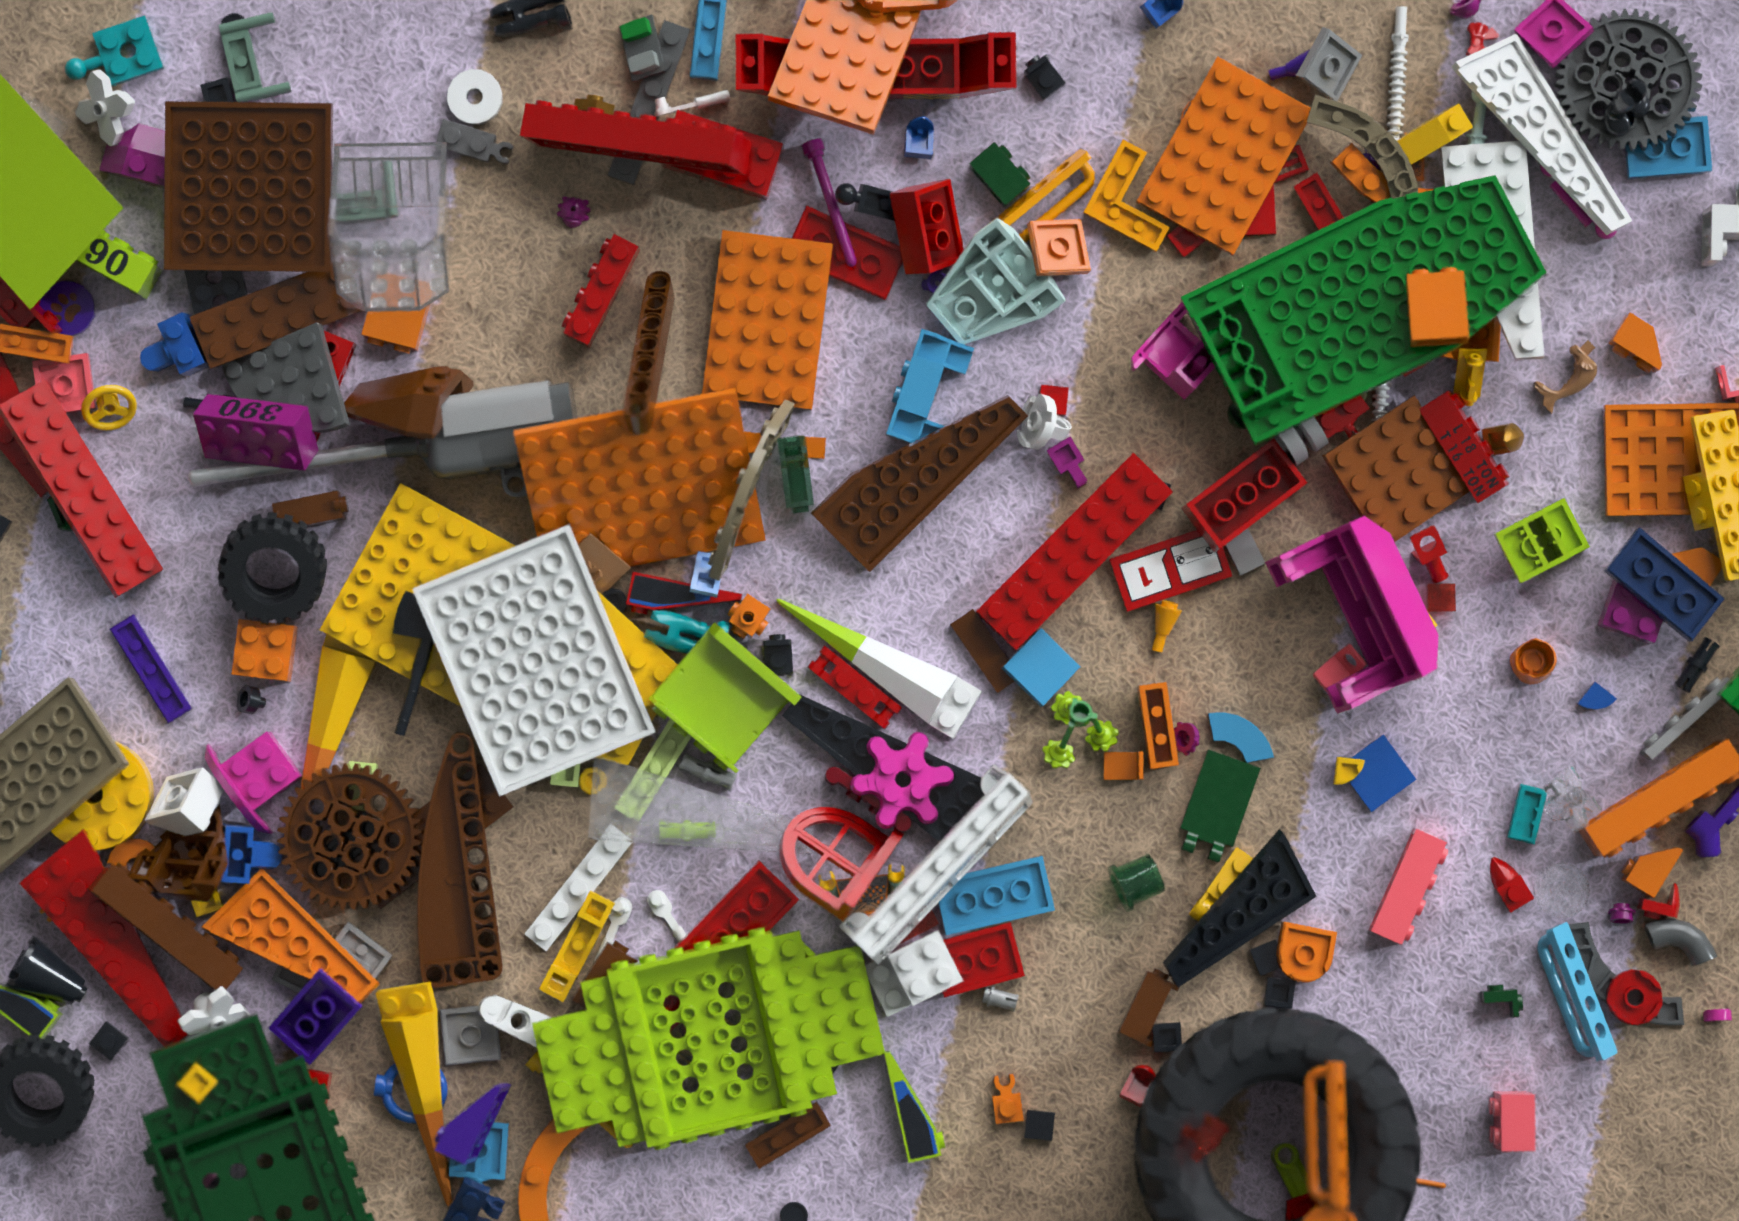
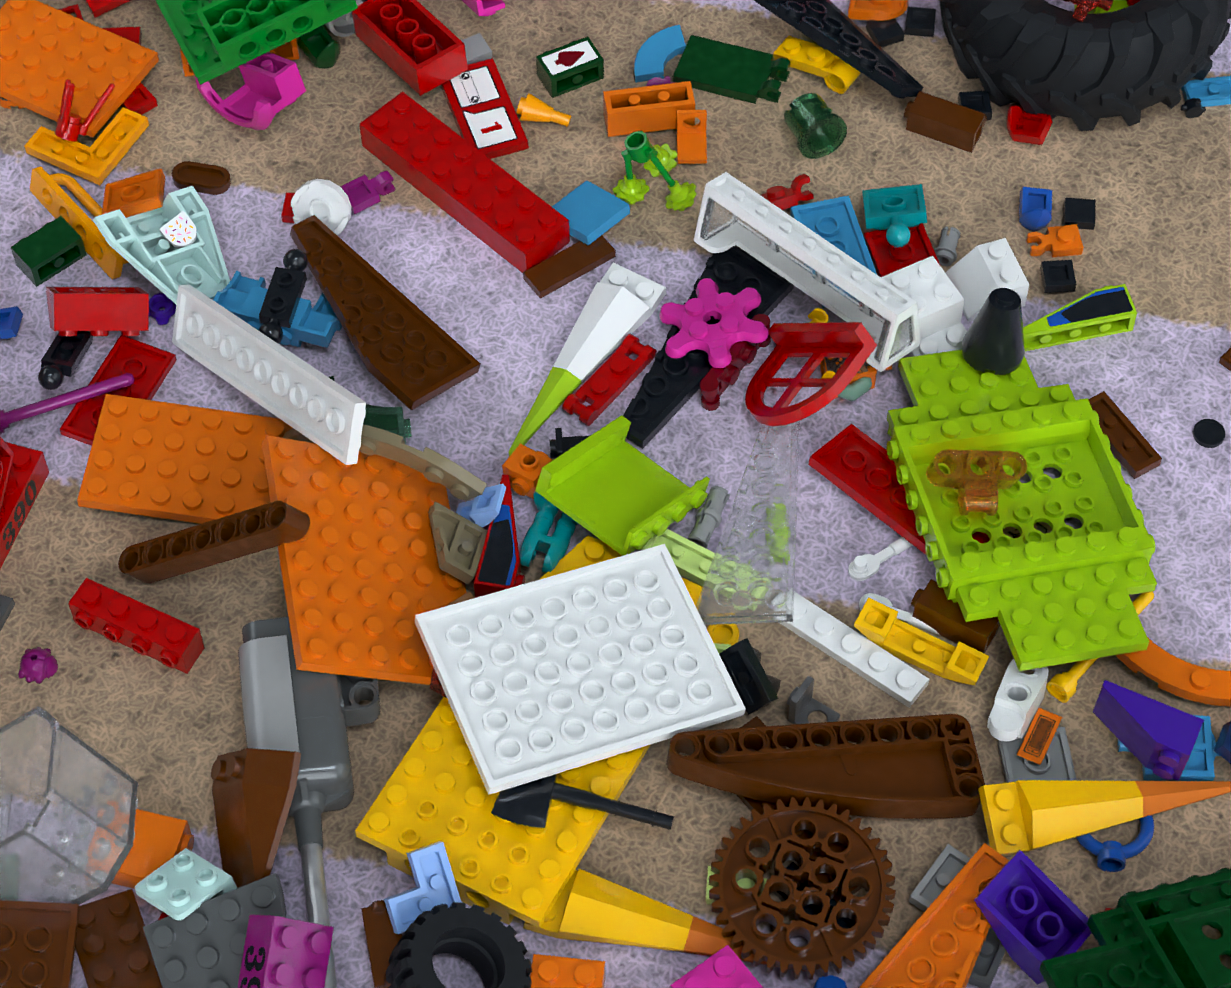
camera: 90 degrees left, 30 degrees down
(339, 546) = (433, 887): none -> light blue plate
(351, 352) = (184, 884): none -> light aqua bracket
(490, 1037) = (1039, 736): none -> sticker
(523, 844) = (803, 704): none -> flat silver bracket
(537, 804) = (749, 677): none -> black tile
(671, 556) = (456, 542): none -> dark tan wing
(700, 1002) = (977, 491): none -> clear orange piece
(824, 385) = (269, 374): none -> white plate
(867, 1029) = (996, 334): none -> black cone
(926, 393) = (283, 295): none -> black plate
(955, 1031) = (984, 270): none -> white slope
(963, 1097) = (1058, 276): none -> black plate
(1008, 294) = (179, 231): none -> white tile
(1024, 962) = (896, 210): none -> teal plate
(1041, 1084) = (1035, 208): none -> blue plate
(1054, 848) = (786, 198): none -> red plate
(1091, 307) = (203, 177): none -> reddish brown tile
(1140, 181) = (69, 123): none -> red plant
(1218, 649) = (570, 67): none -> dark green brick

